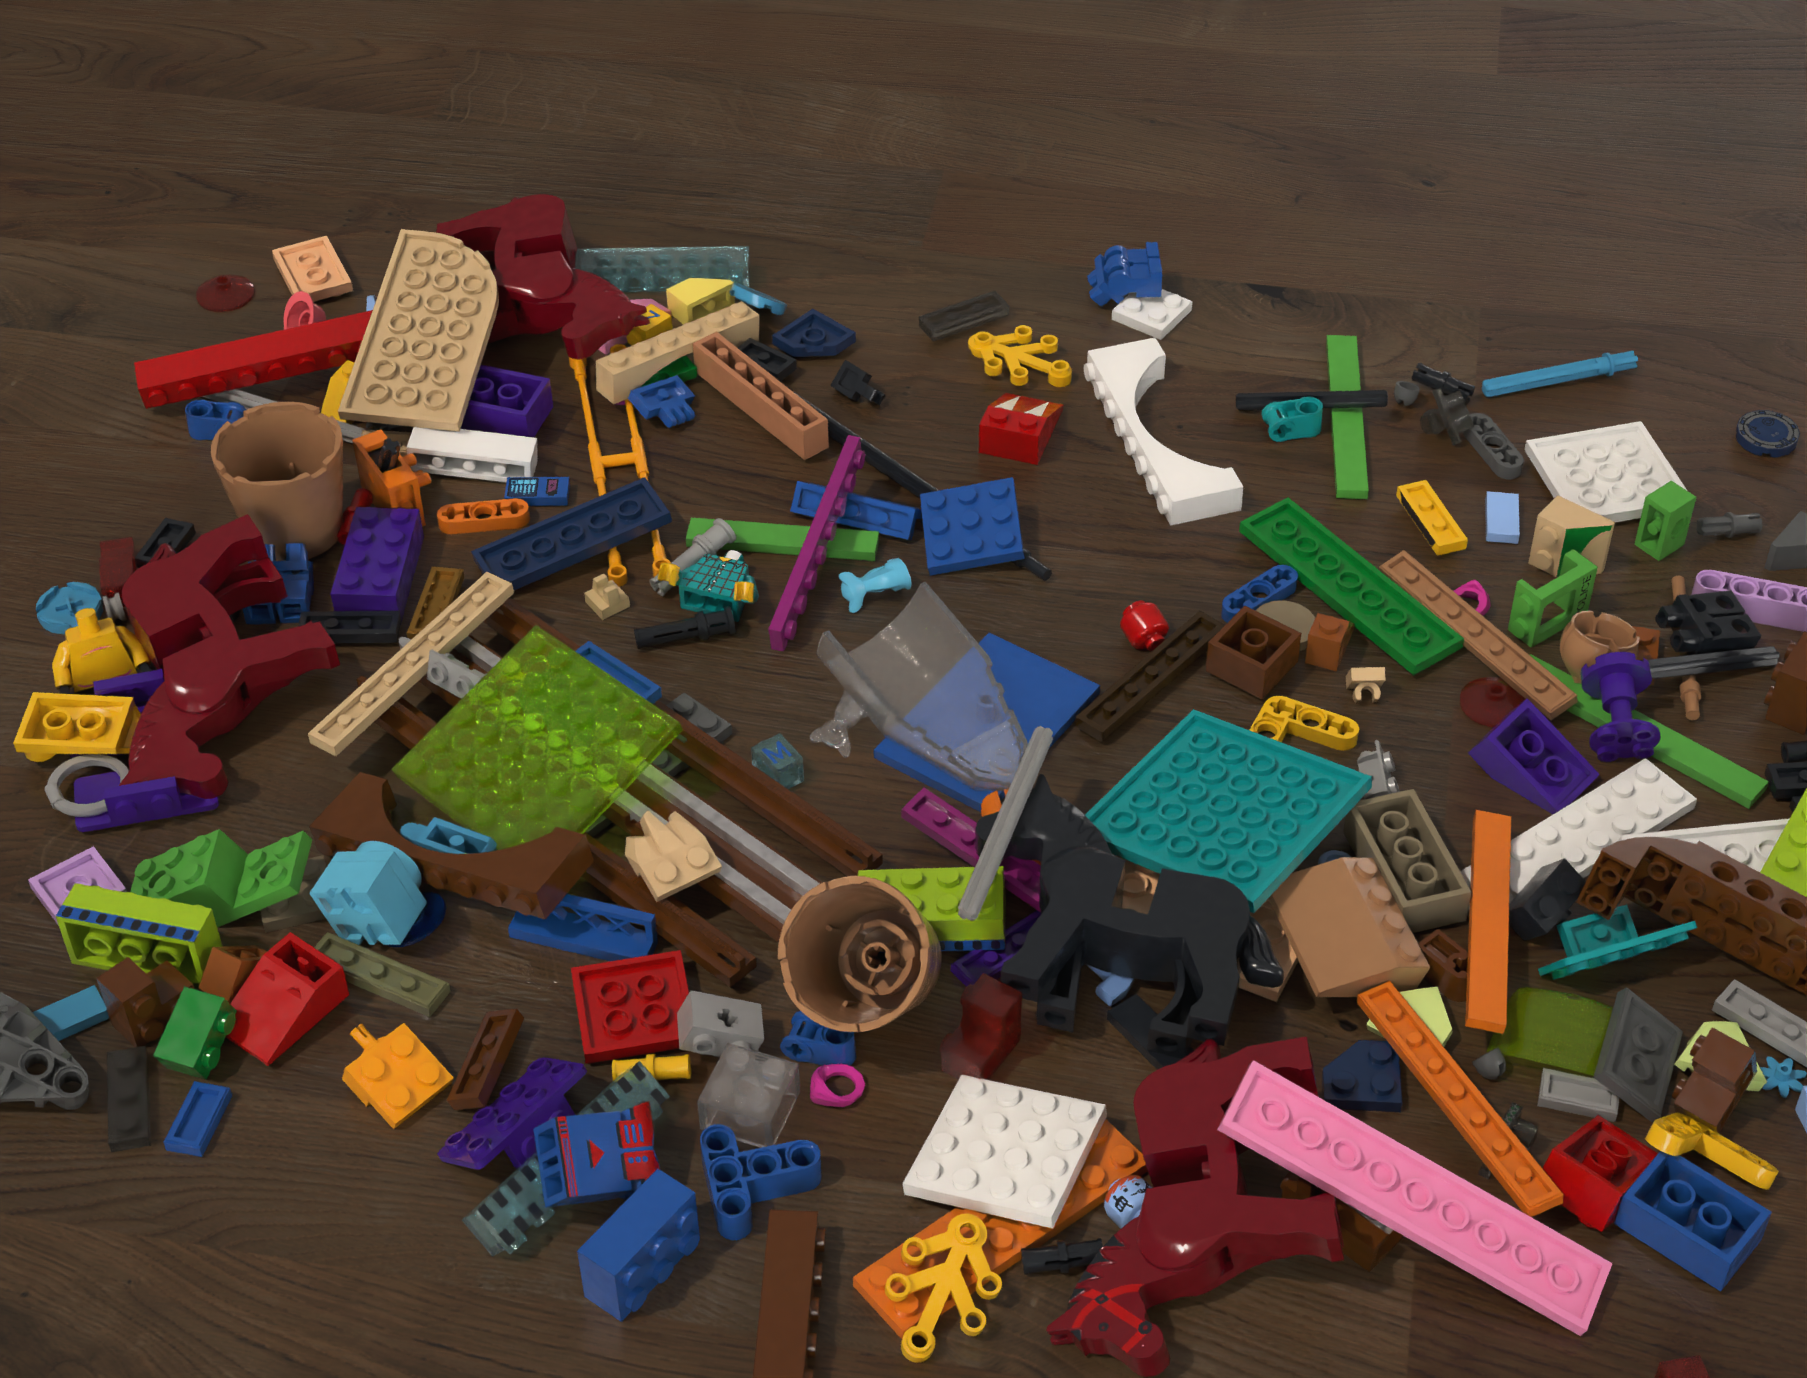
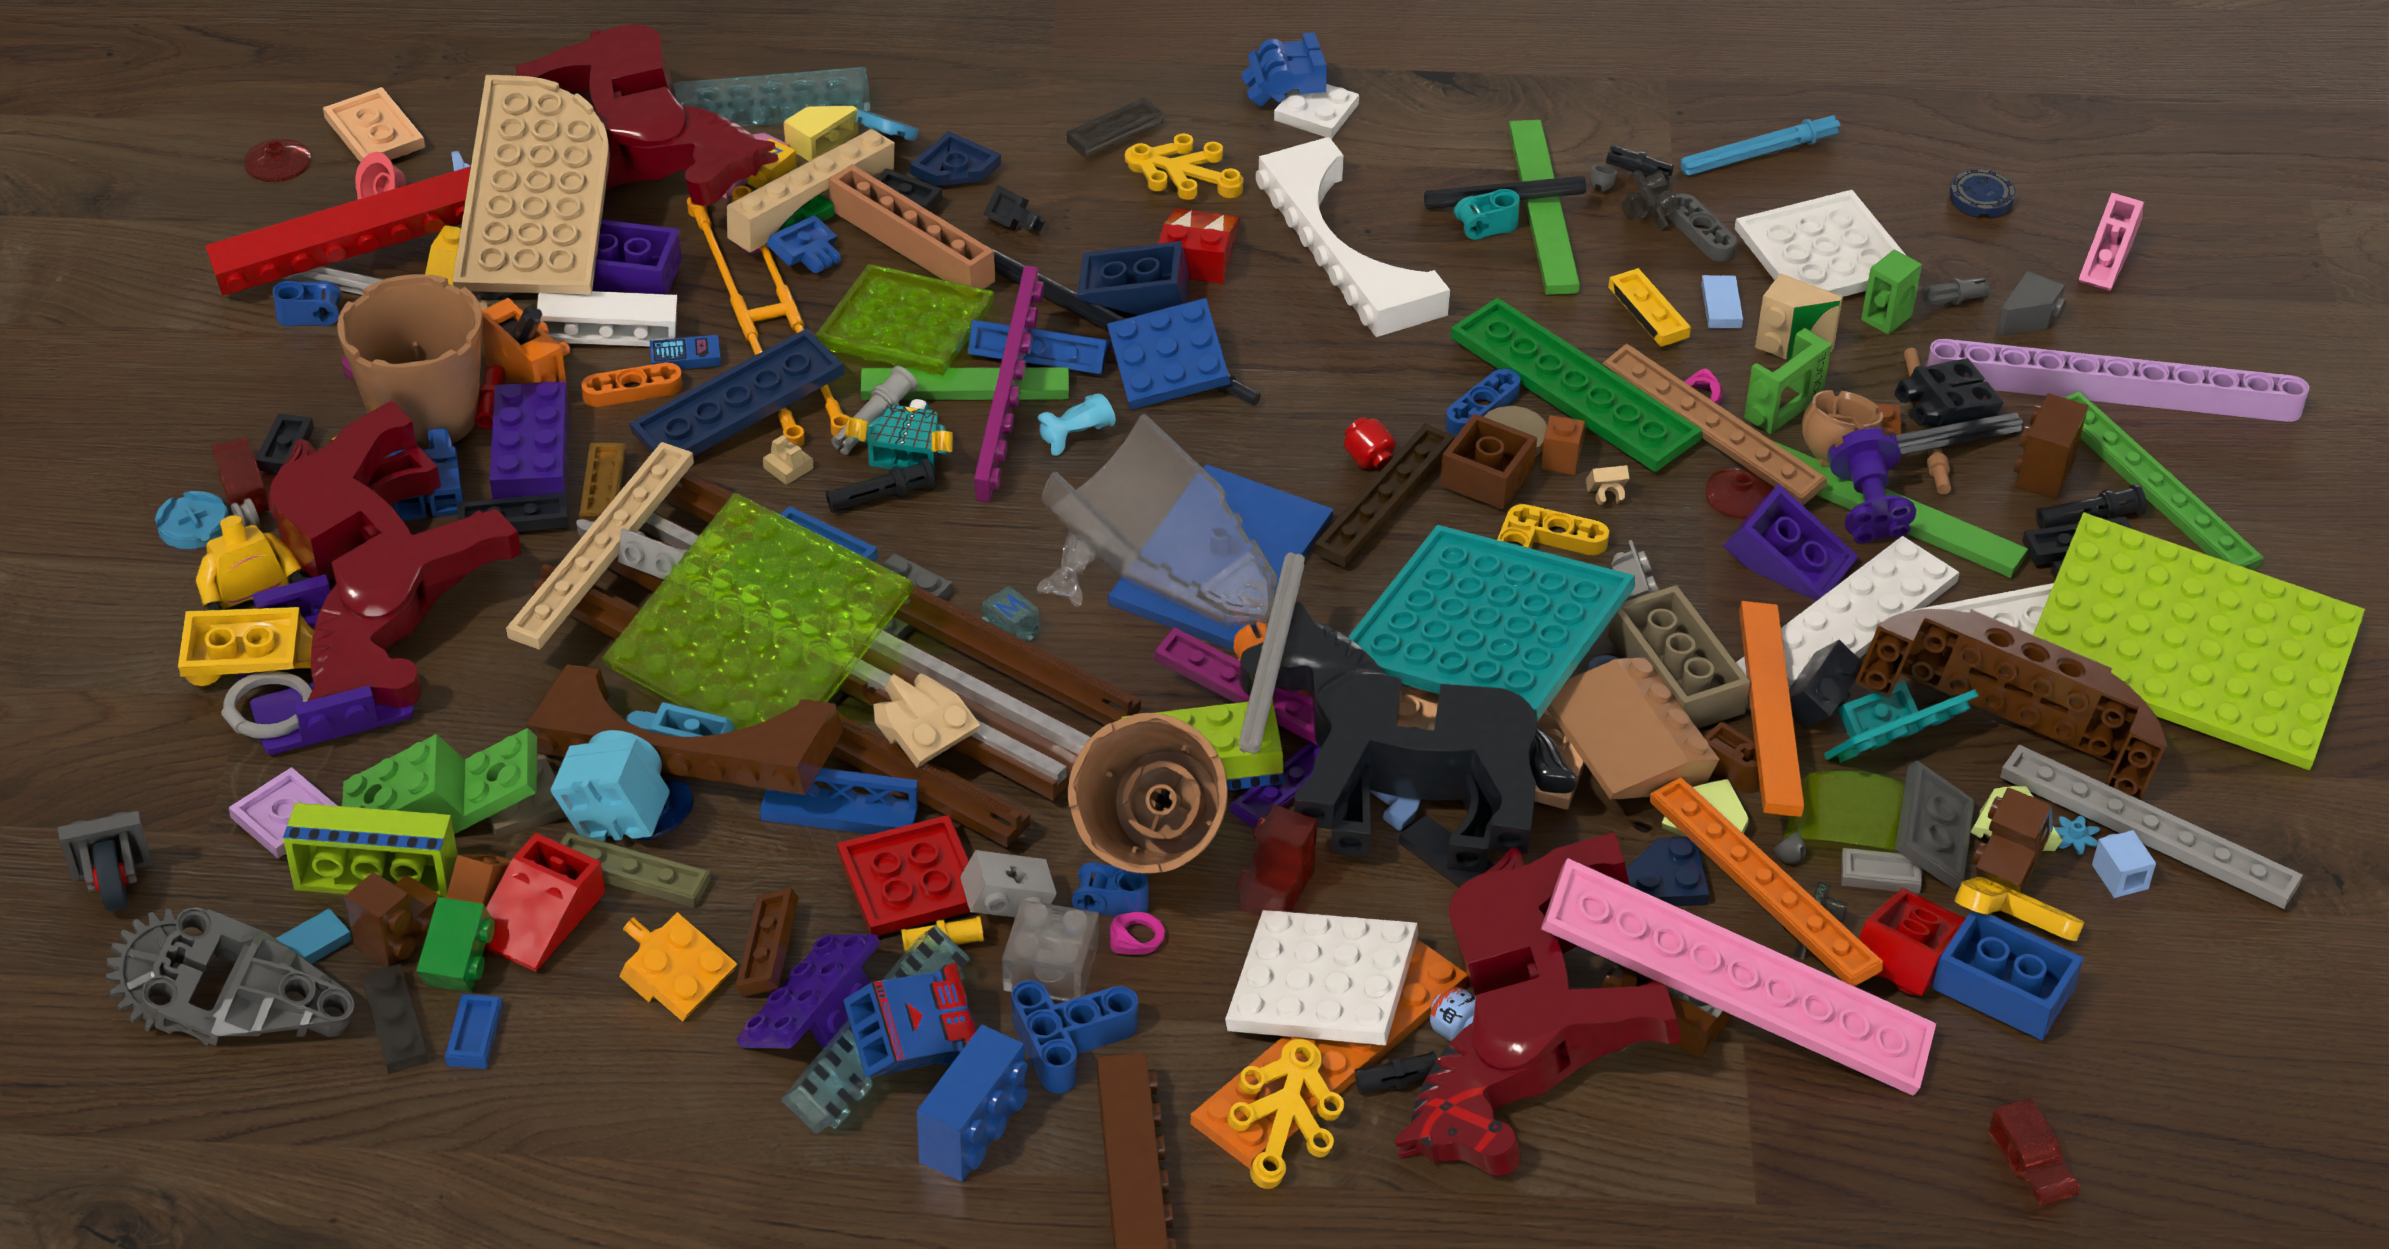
camera: 10 degrees left, 0 degrees up
(738, 475) = (904, 319): none -> clear neon green plate
(955, 453) = (1135, 277): none -> dark blue slope

